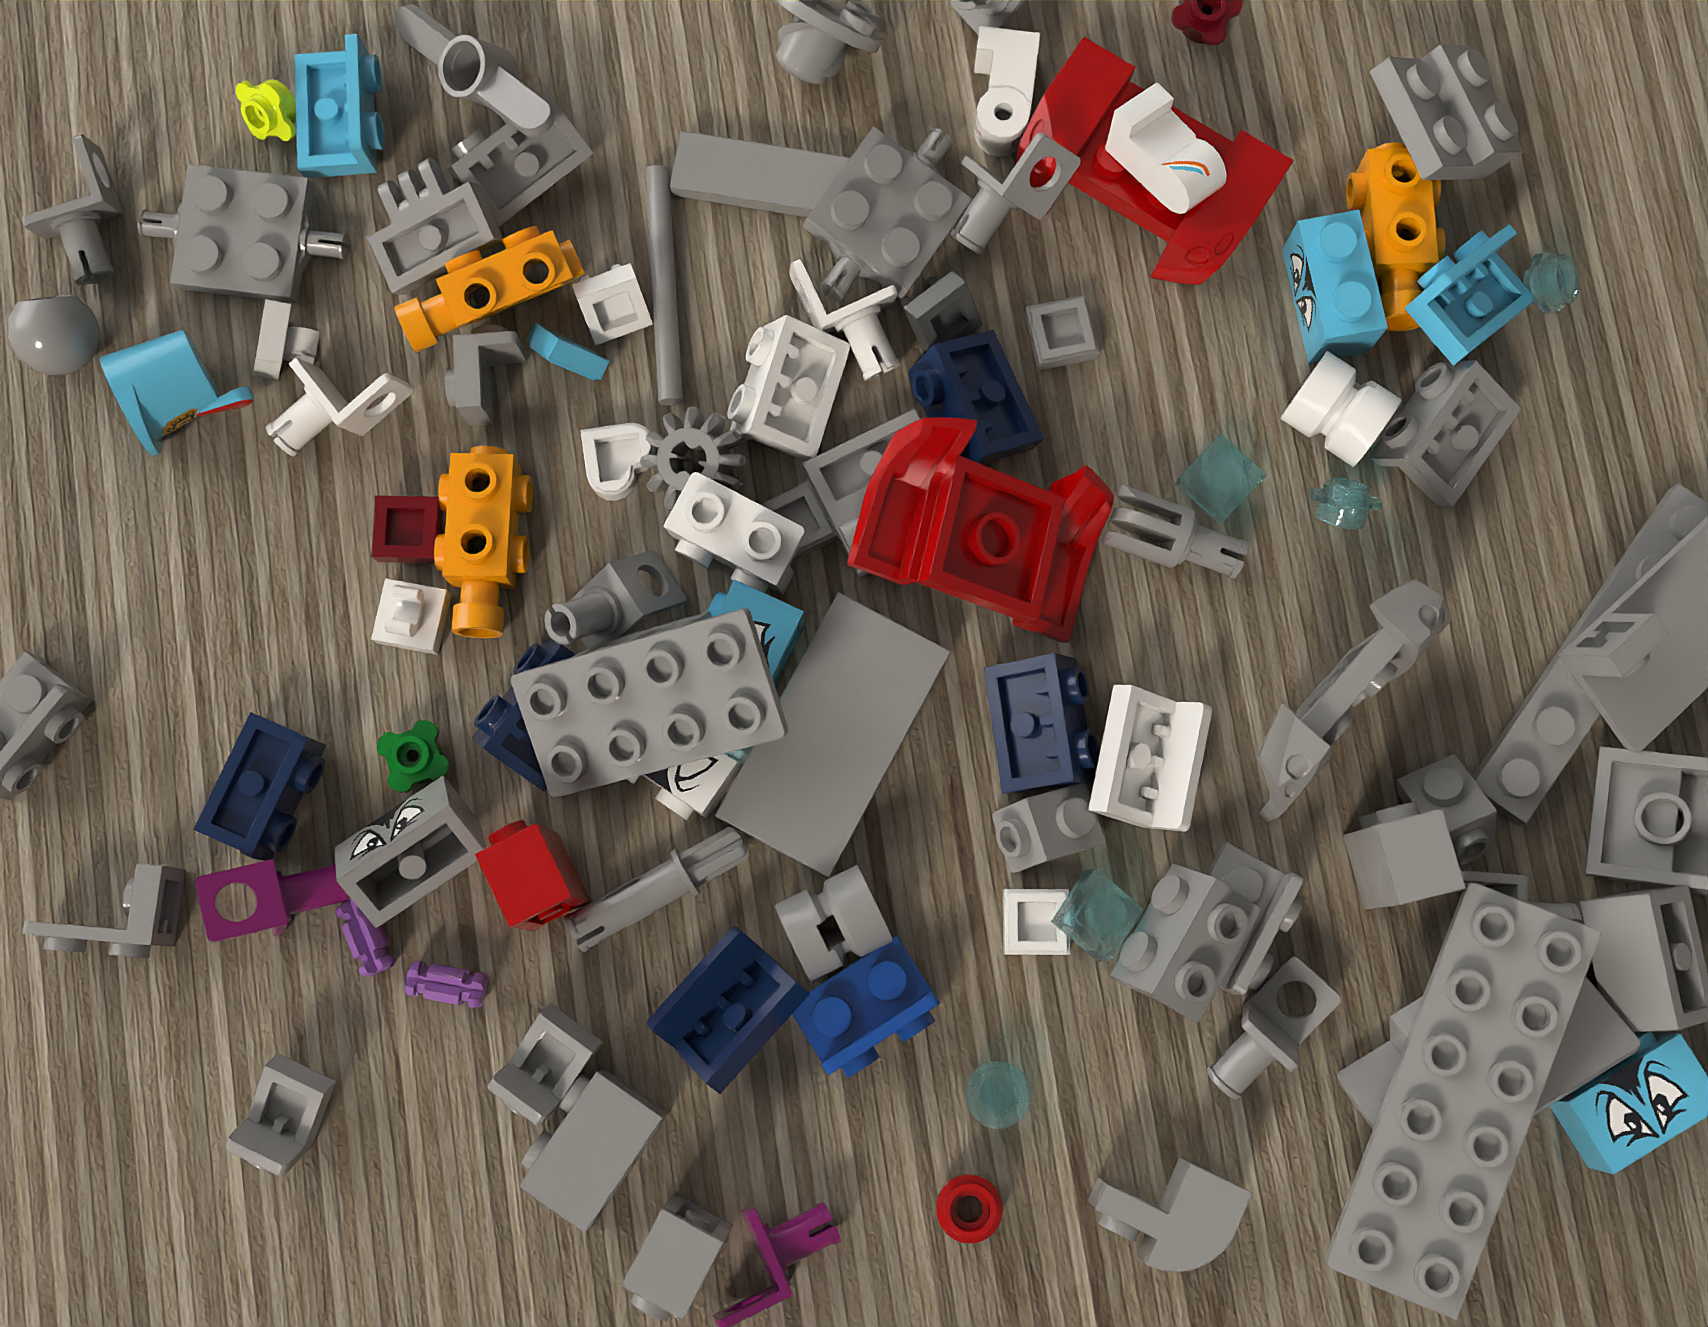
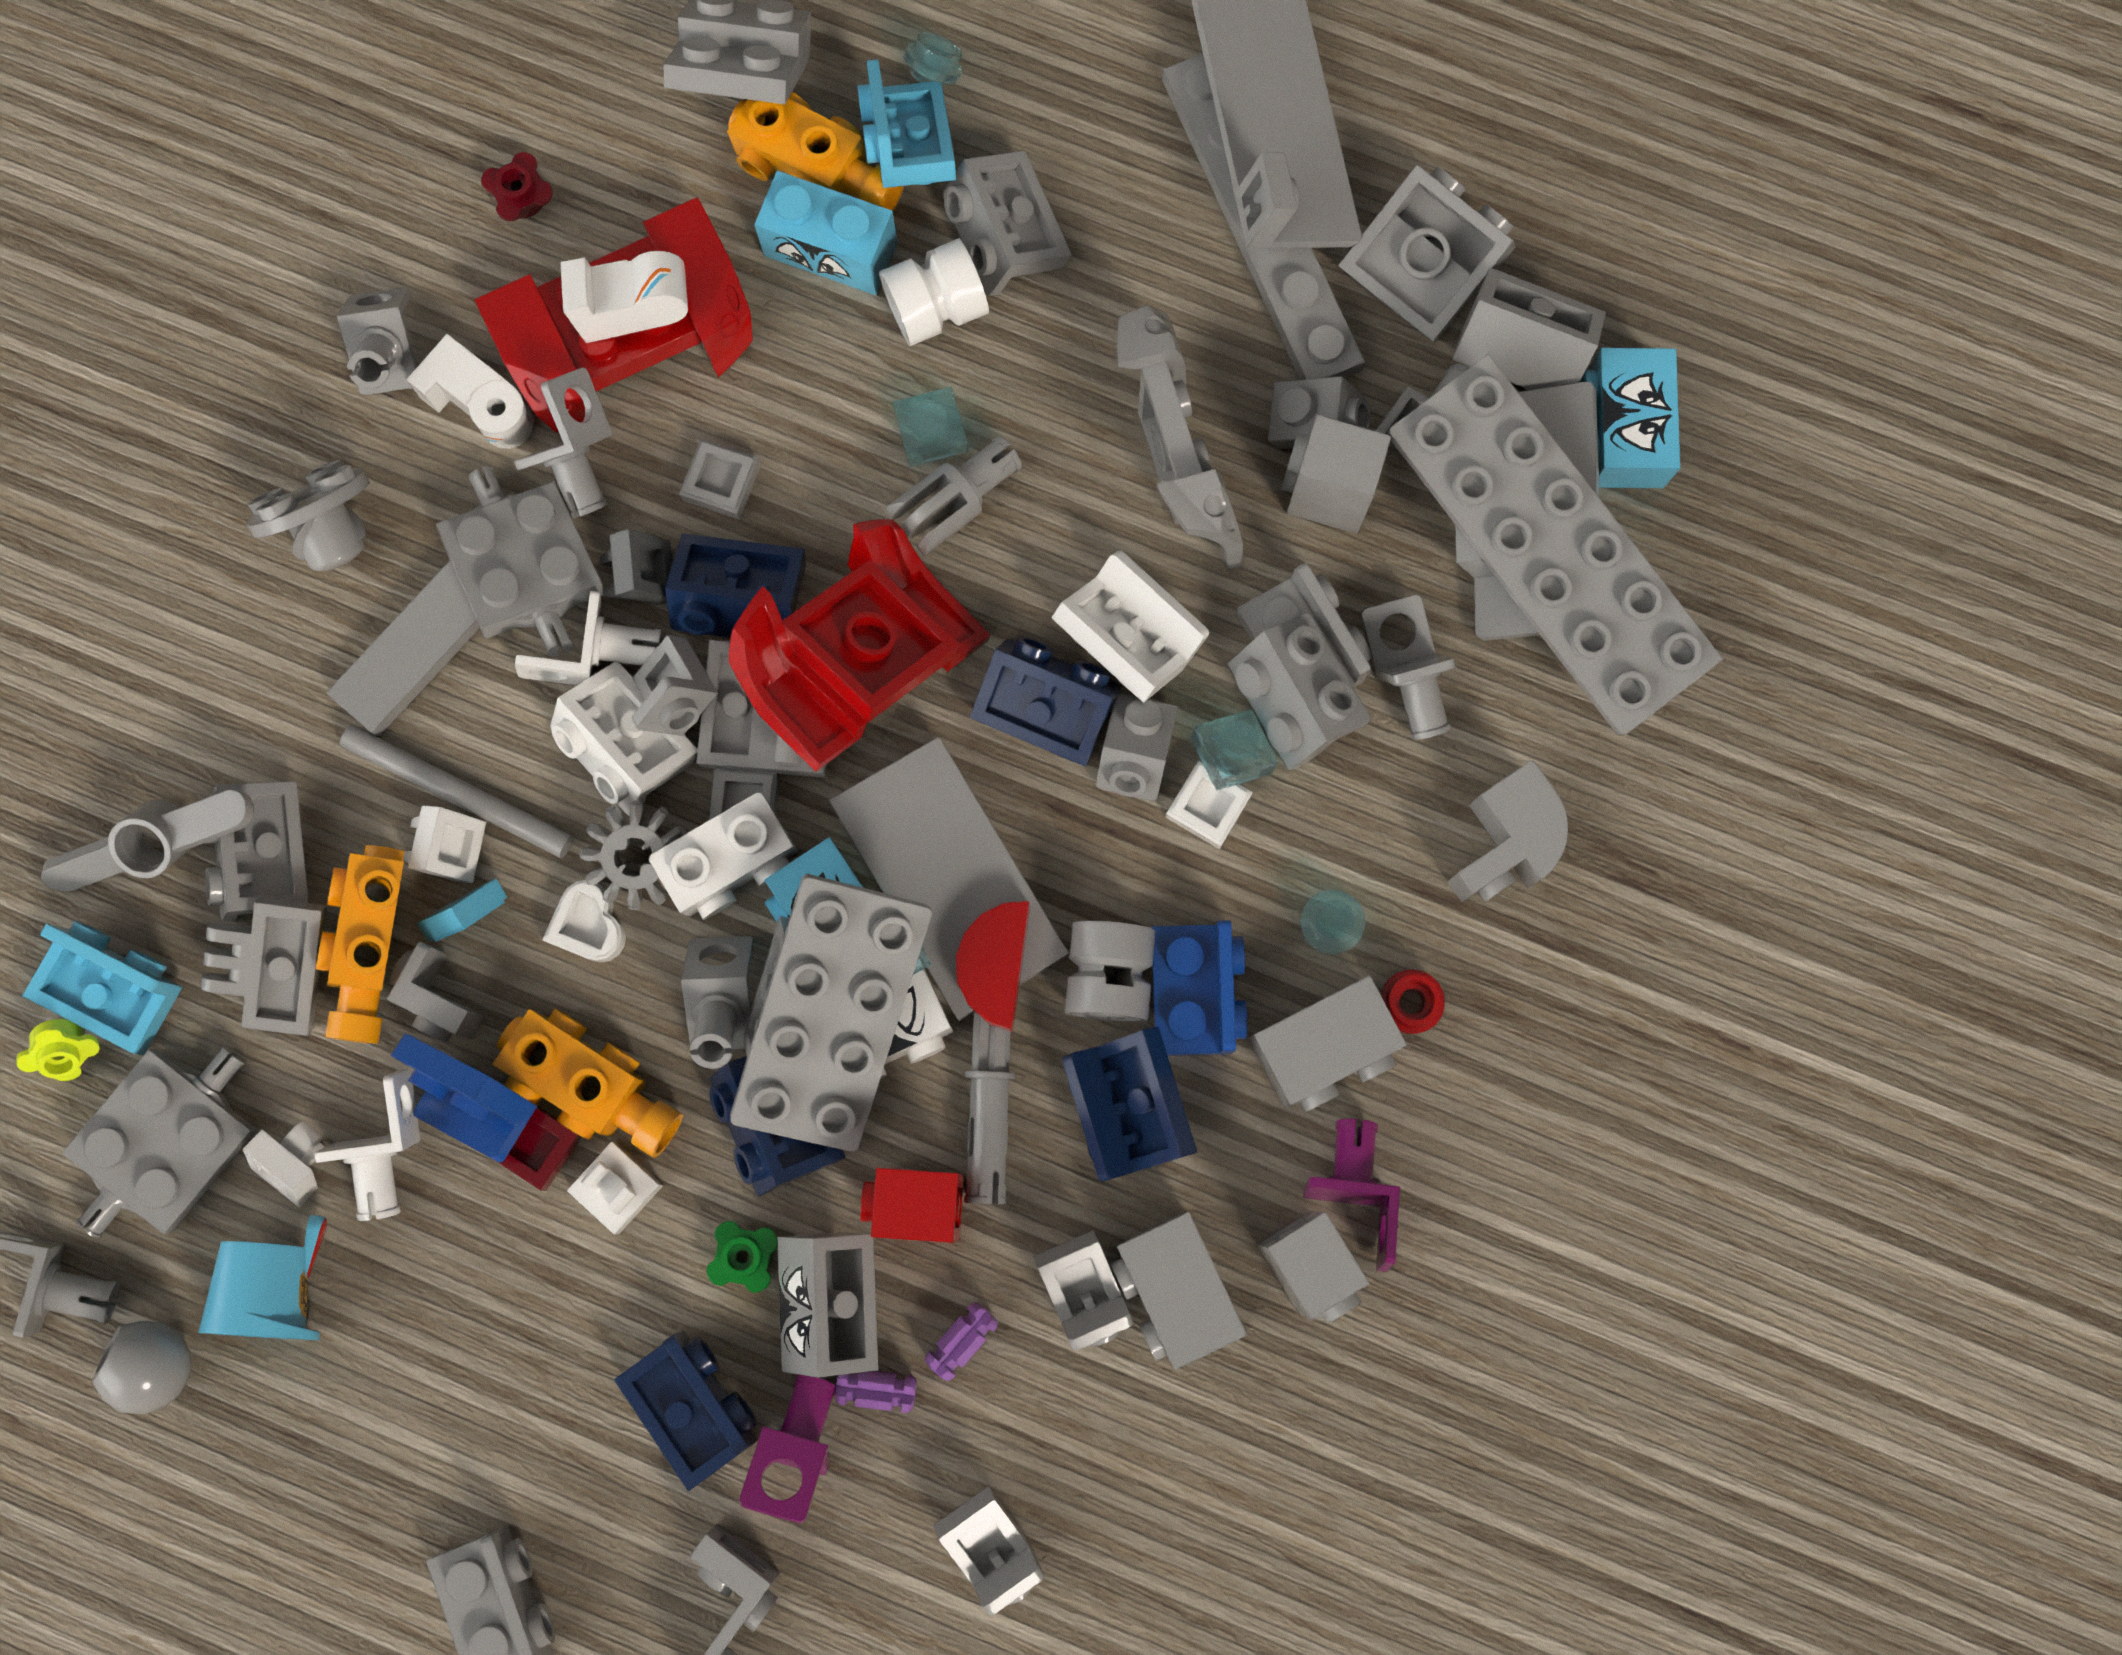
camera: 60 degrees left, 0 degrees up
(407, 448) = (464, 1100): none -> blue bracket
(778, 816) = (992, 962): none -> red tile
(853, 404) = (673, 688): none -> light grey bracket
(885, 1156) = (1327, 1043): none -> light grey brick
(1344, 503) = (1014, 339): clear light blue plate -> none

